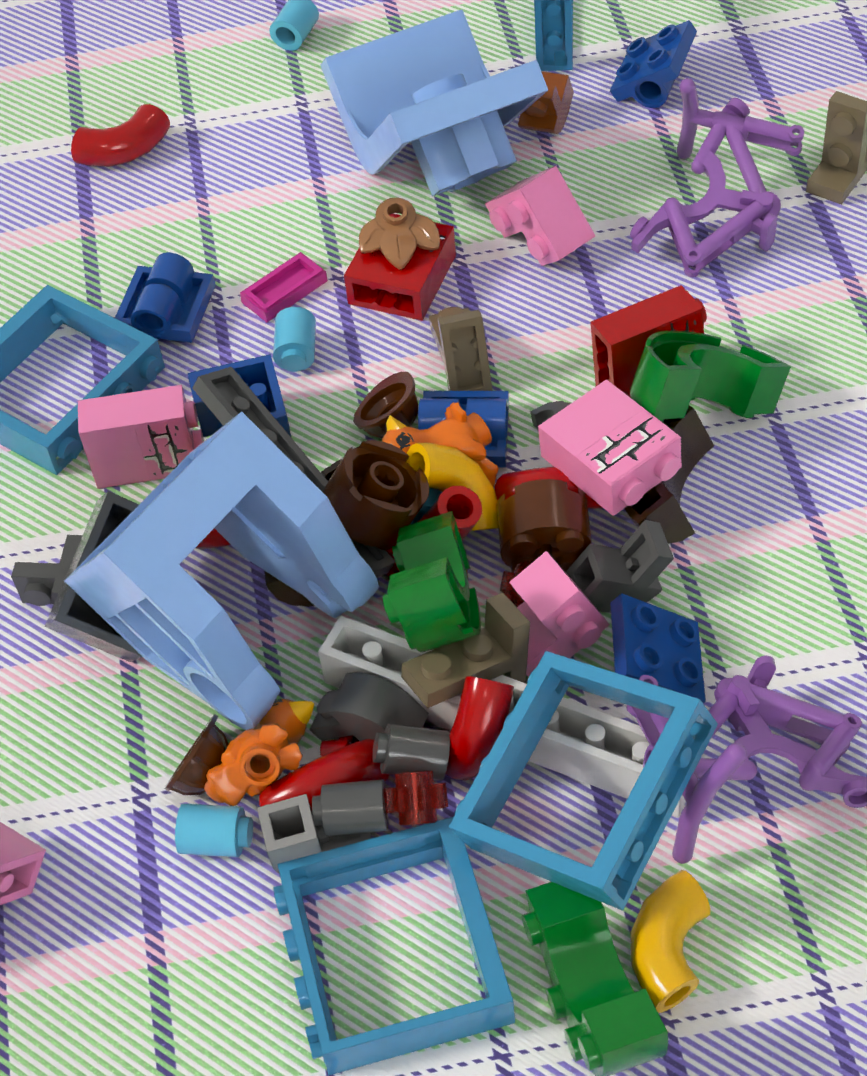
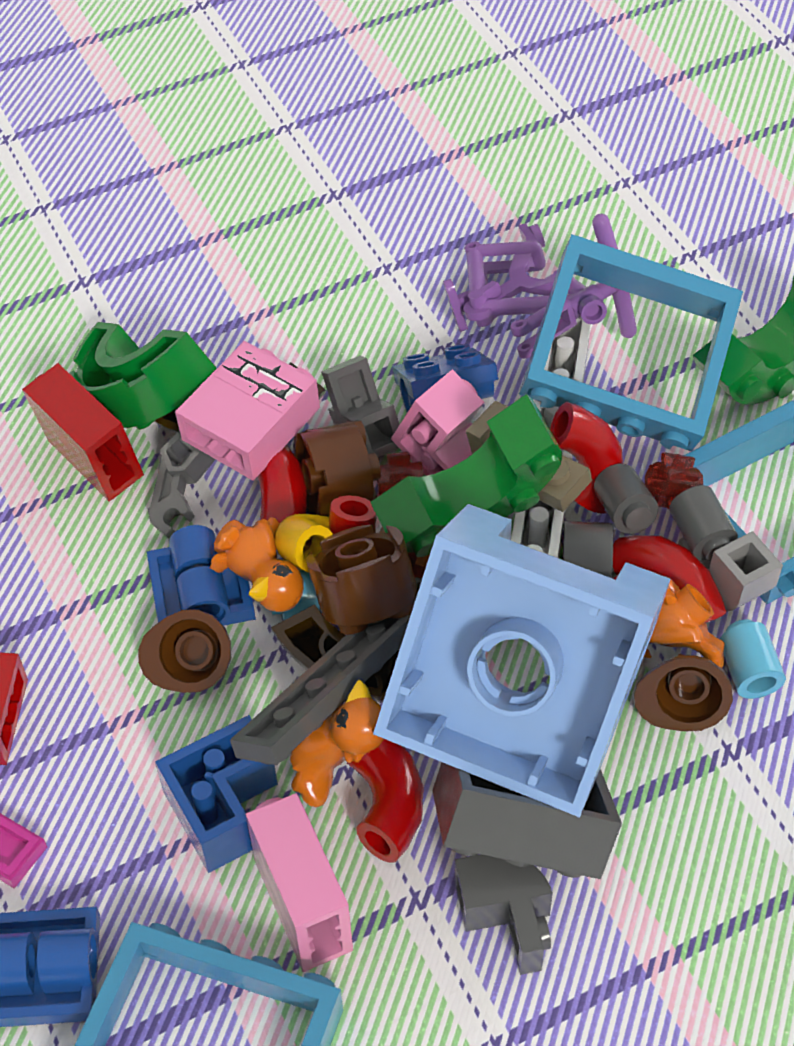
camera: 110 degrees left, 0 degrees up
(294, 339) = (93, 783): medium azure brick -> none
(463, 348) = (83, 608): dark tan bracket -> none
(659, 939) = (690, 332): yellow cylinder -> none

